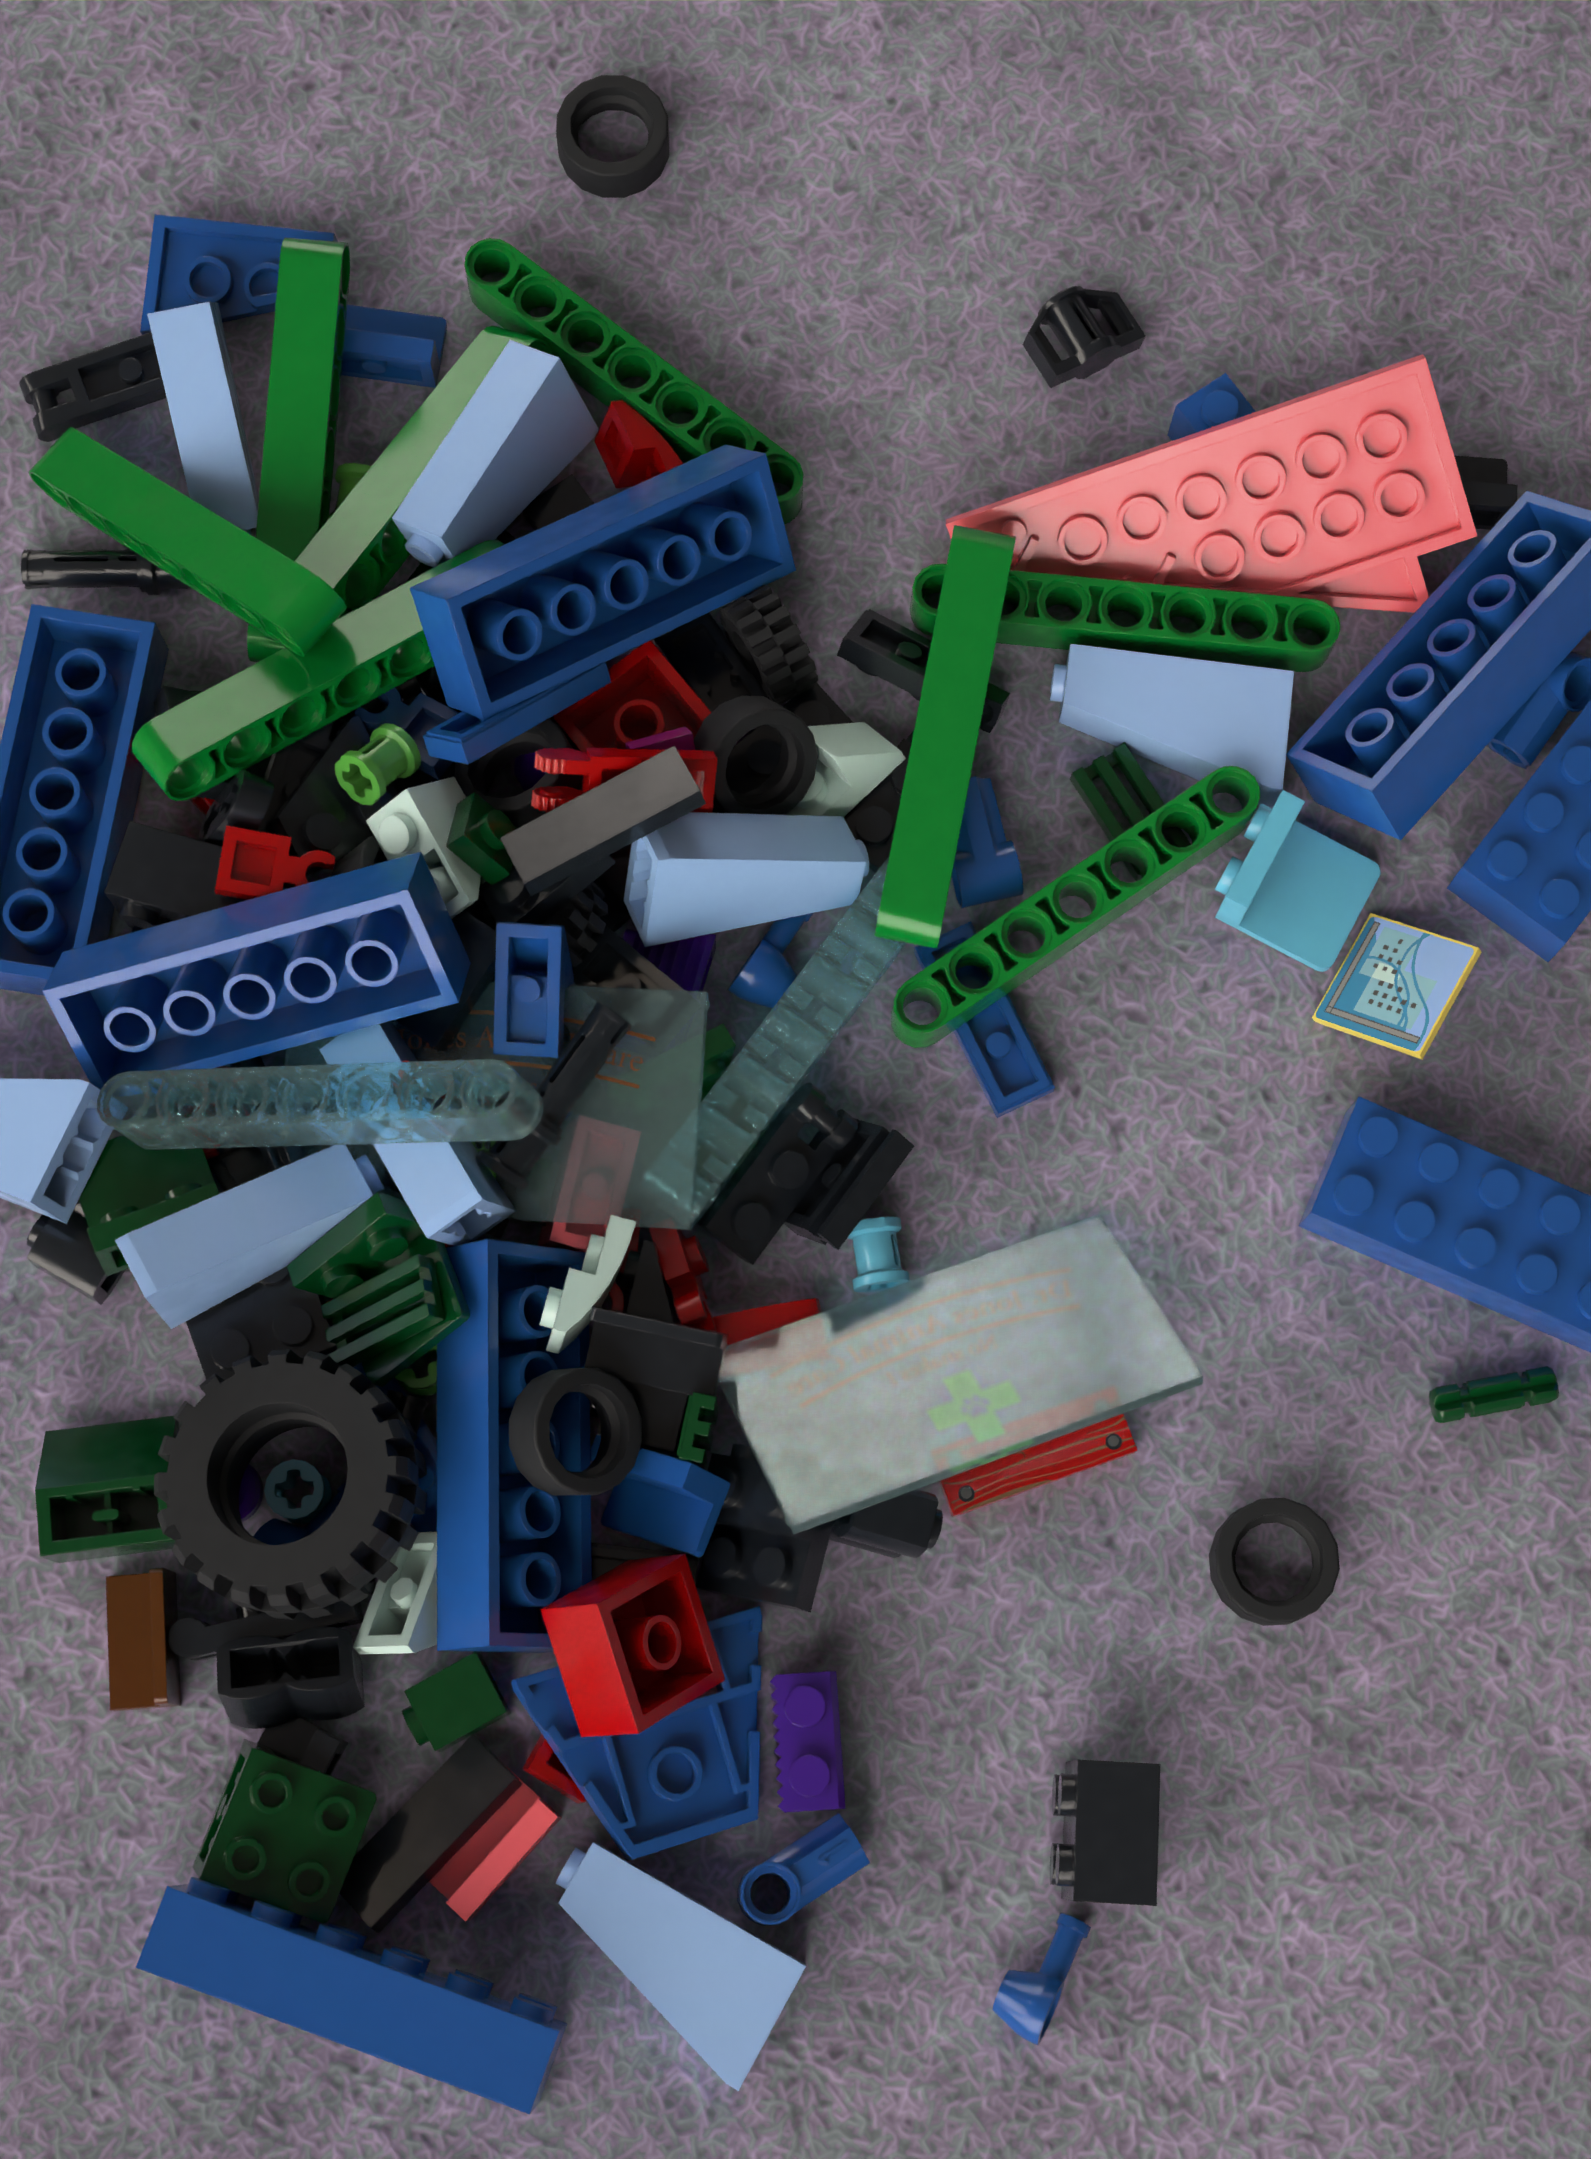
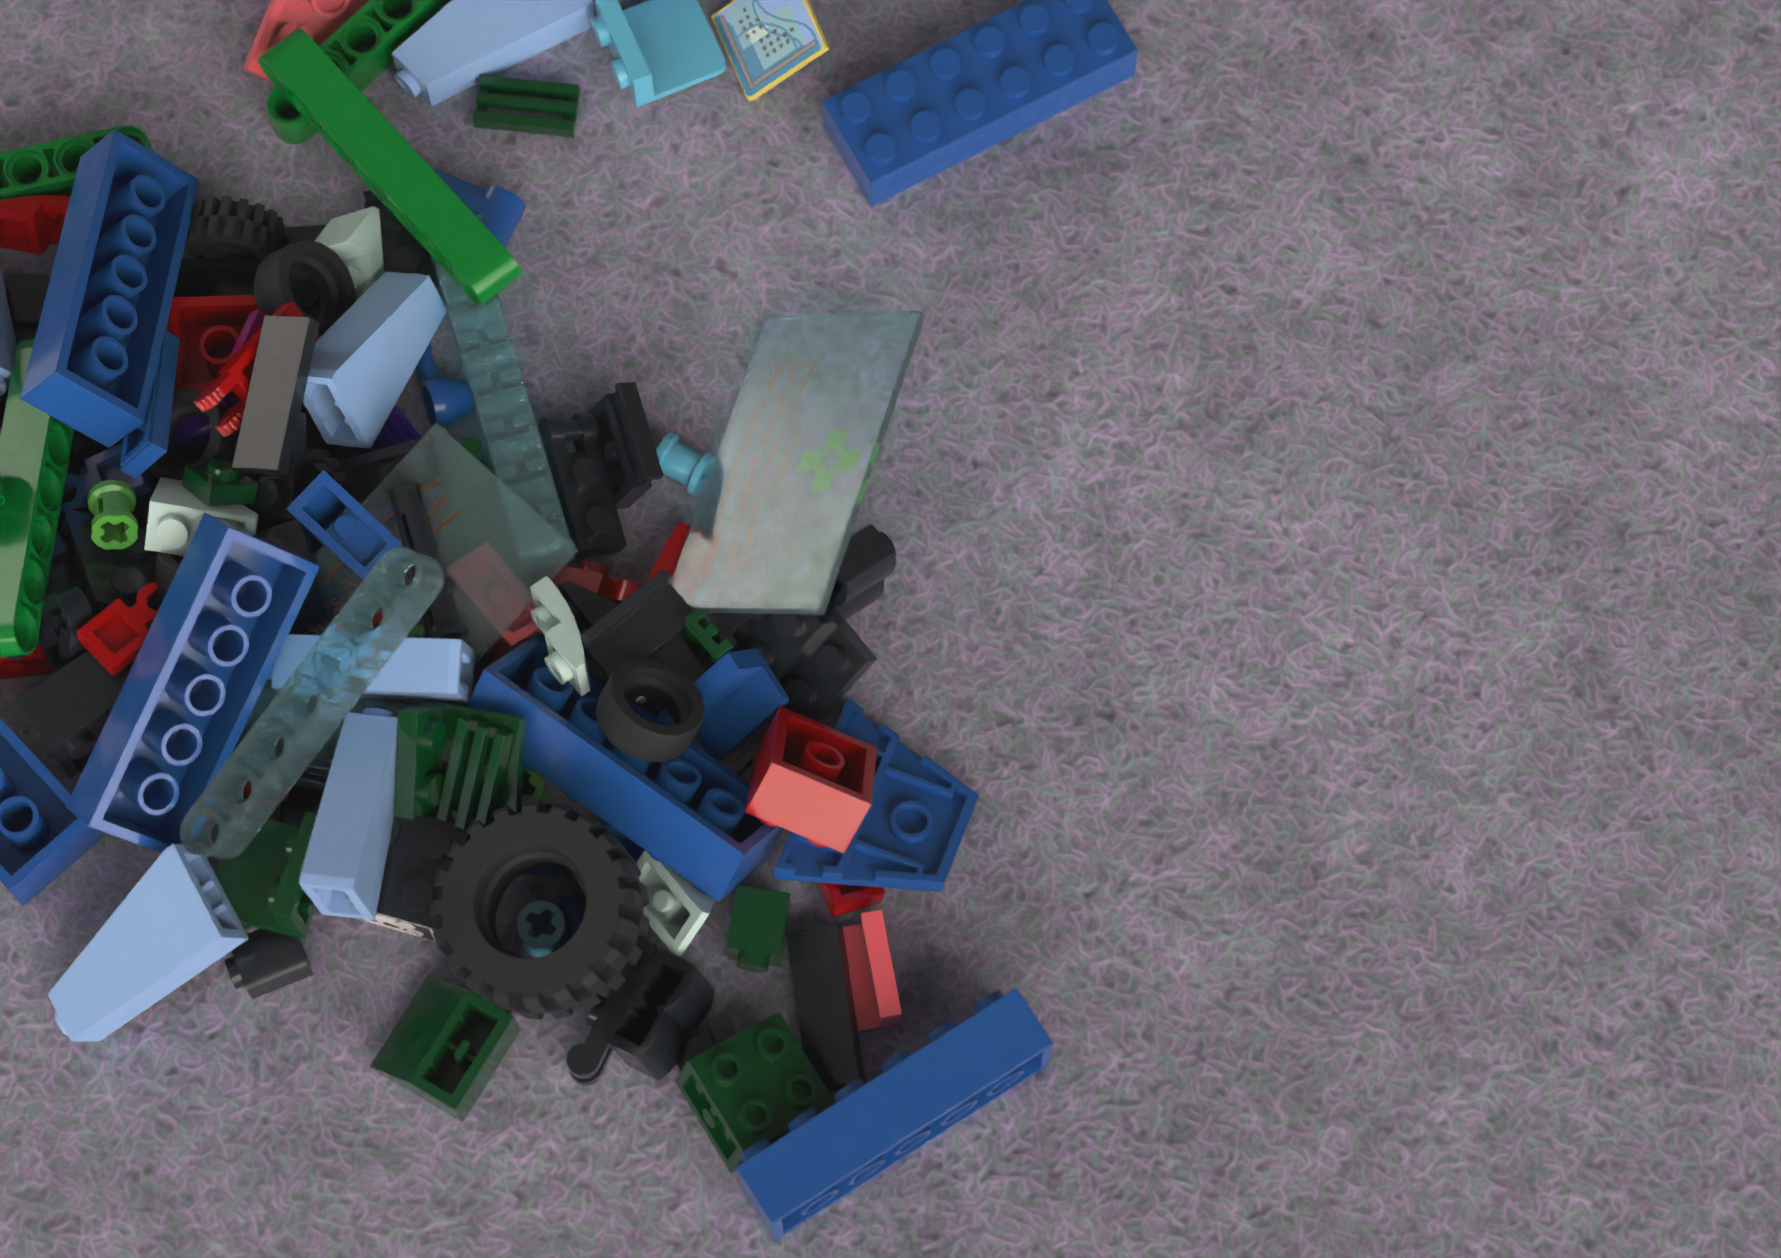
camera: 50 degrees left, 5 degrees down
(141, 1663) = (559, 1099): reddish brown panel -> none
(689, 1961) = (1028, 902): light blue slope -> none
(806, 1868) = (1033, 793): blue piece -> none
(808, 1741) = (955, 728): dark purple brick -> none
(901, 658) = (303, 166): black hinge -> none
(994, 1038) = (587, 292): blue tile -> none
(1030, 1998) = (1215, 713): blue bar -> none
(1039, 1465) = (894, 463): red tile -> none
(1090, 880) = (564, 199): green beam -> none
(1107, 1832) = (1151, 585): black brick -> none
(1323, 1553) = (1060, 410): black tyre -> none
(1493, 1394) = (1066, 171): dark green axle -> none

